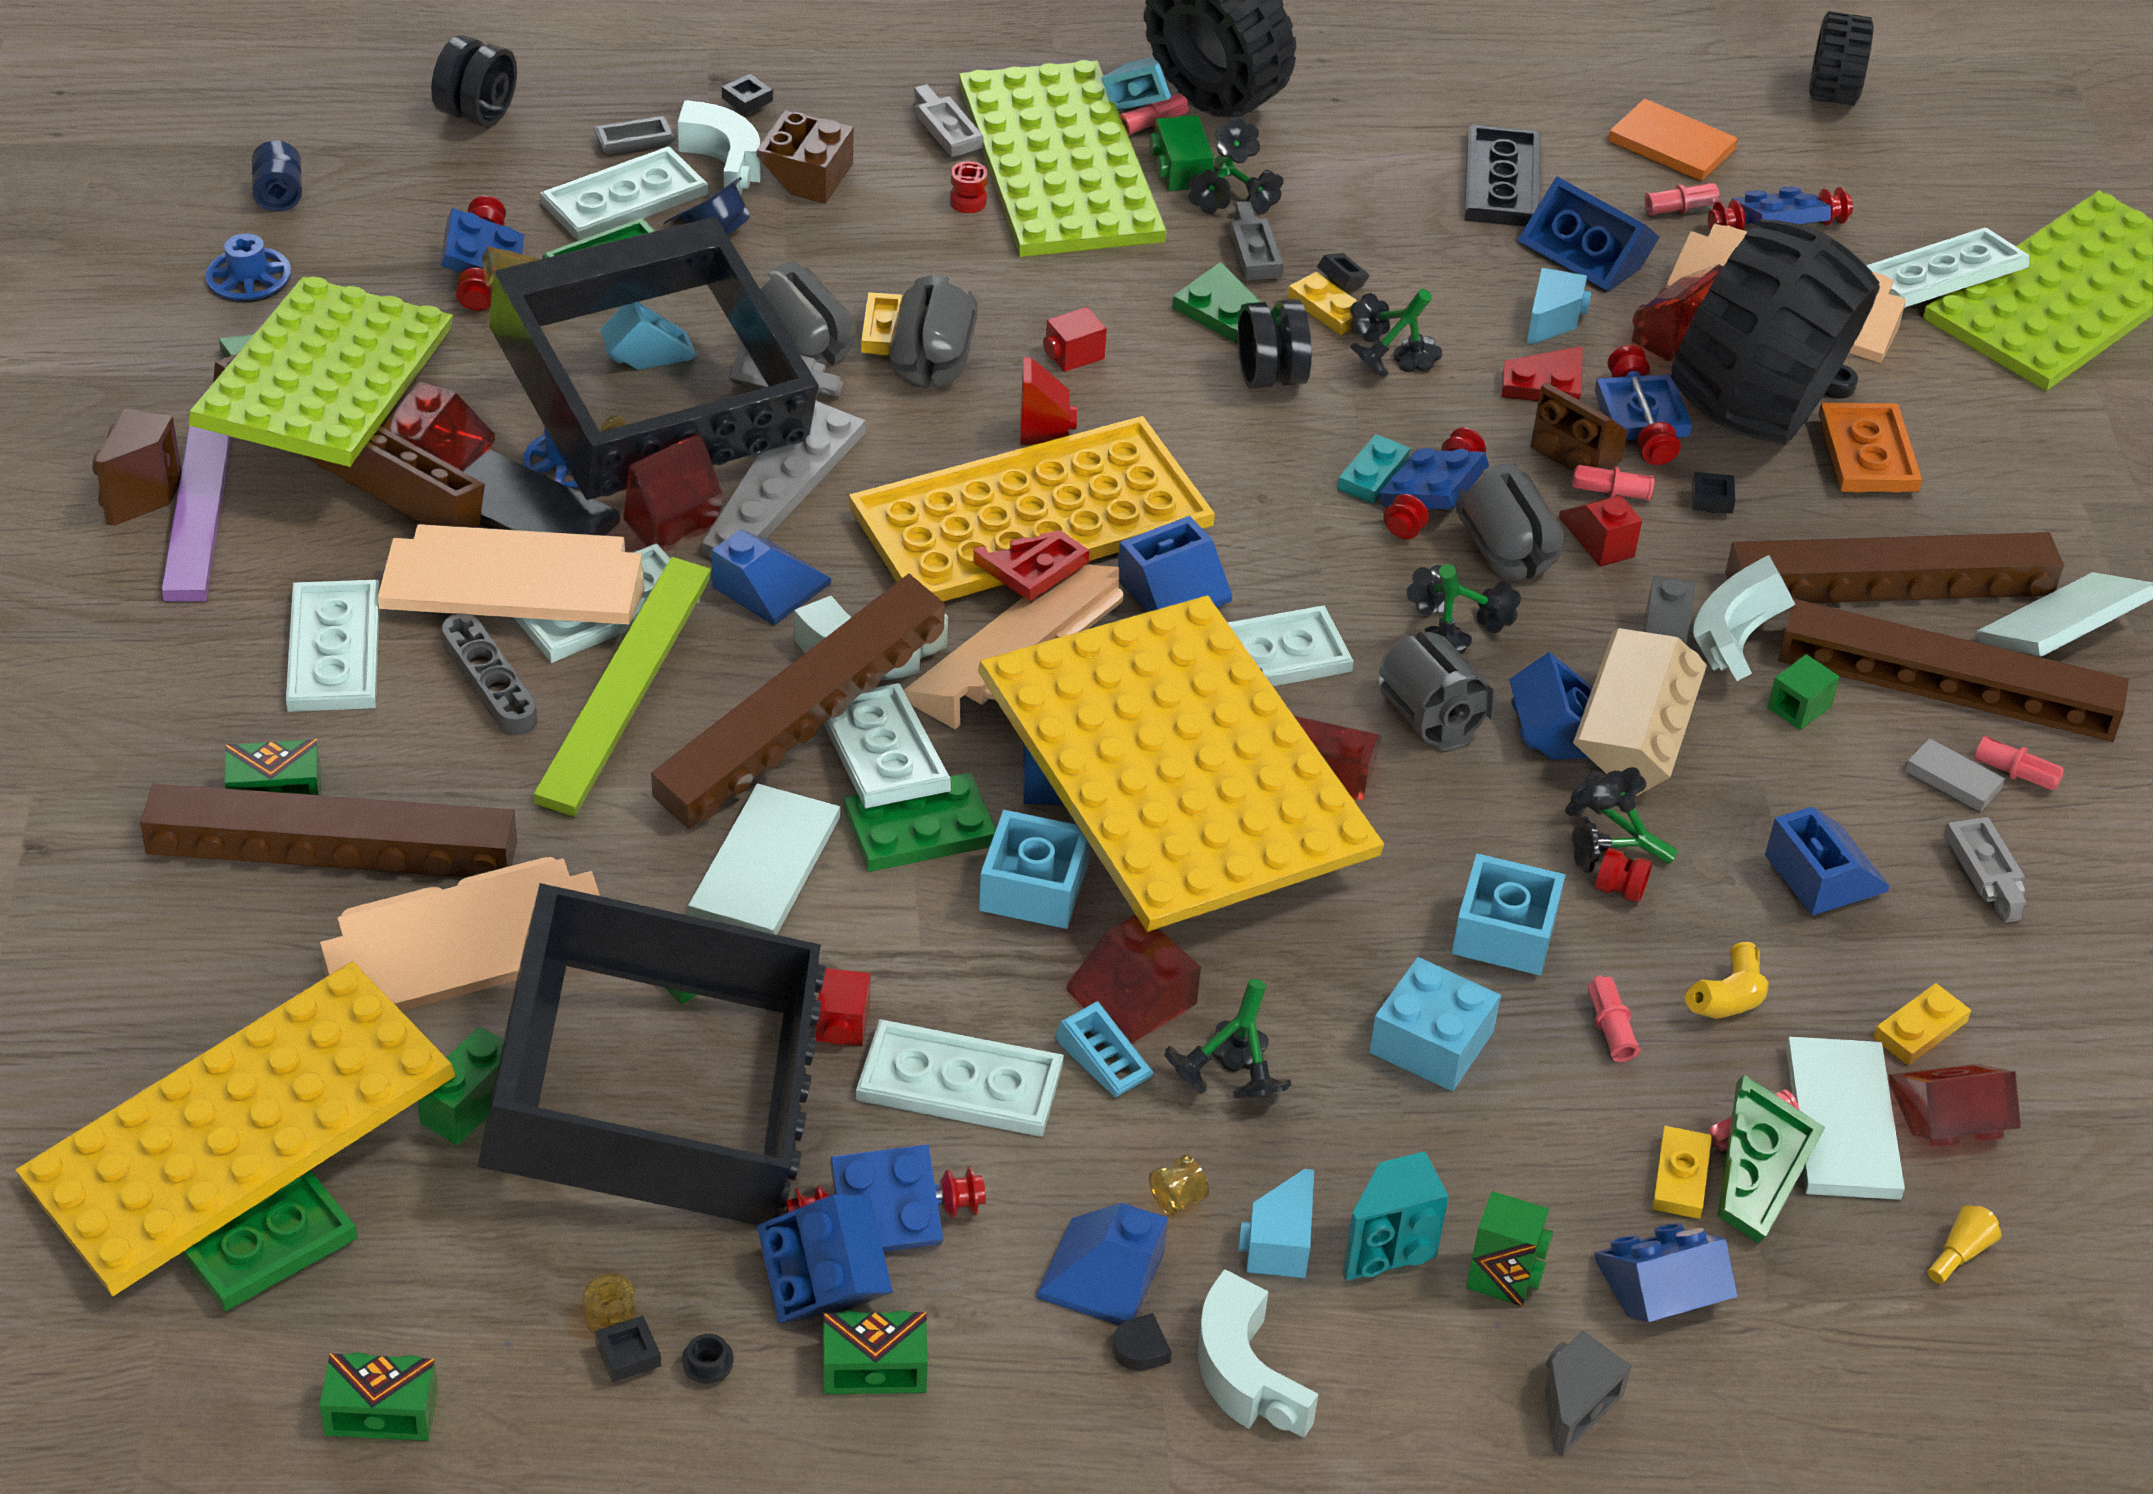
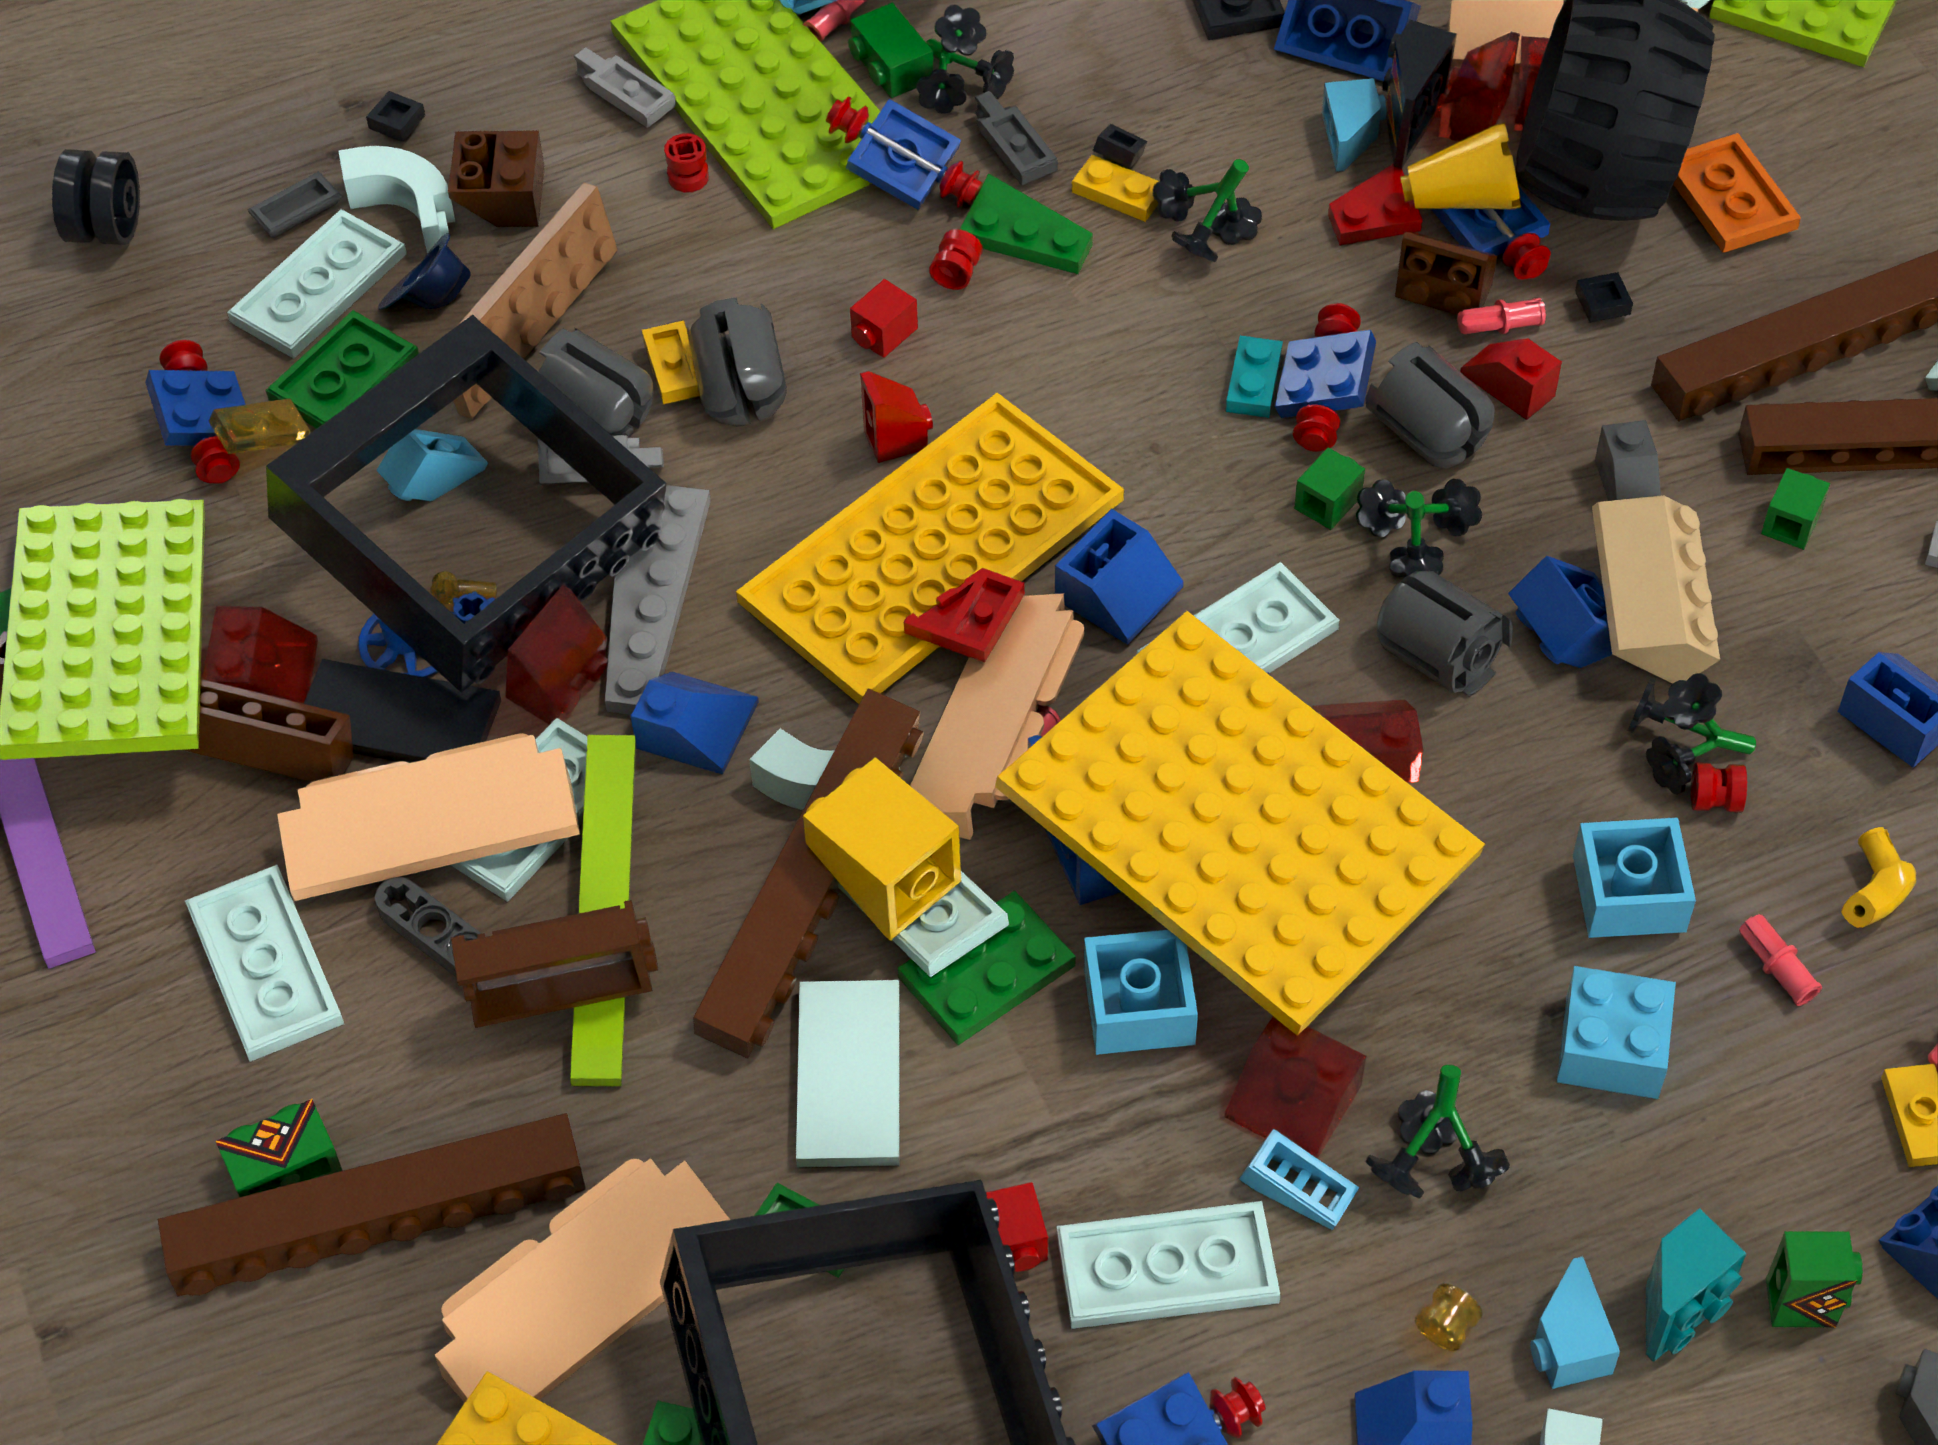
camera: 15 degrees left, 10 degrees up
(556, 698) = (555, 964): none -> reddish brown door
(803, 230) = (544, 280): none -> medium nougat plate
(866, 691) = (885, 846): none -> yellow slope
(1151, 224) = (903, 153): none -> blue plate
(1159, 314) = (955, 260): none -> red wheel
(1274, 343) = (1098, 263): black wheel -> none
(1391, 562) = (1329, 488): none -> green brick
(1624, 282) = (1415, 83): none -> black slope
(1628, 362) = (1466, 175): none -> yellow cone
(1737, 611) = (1691, 439): light aqua arch -> none

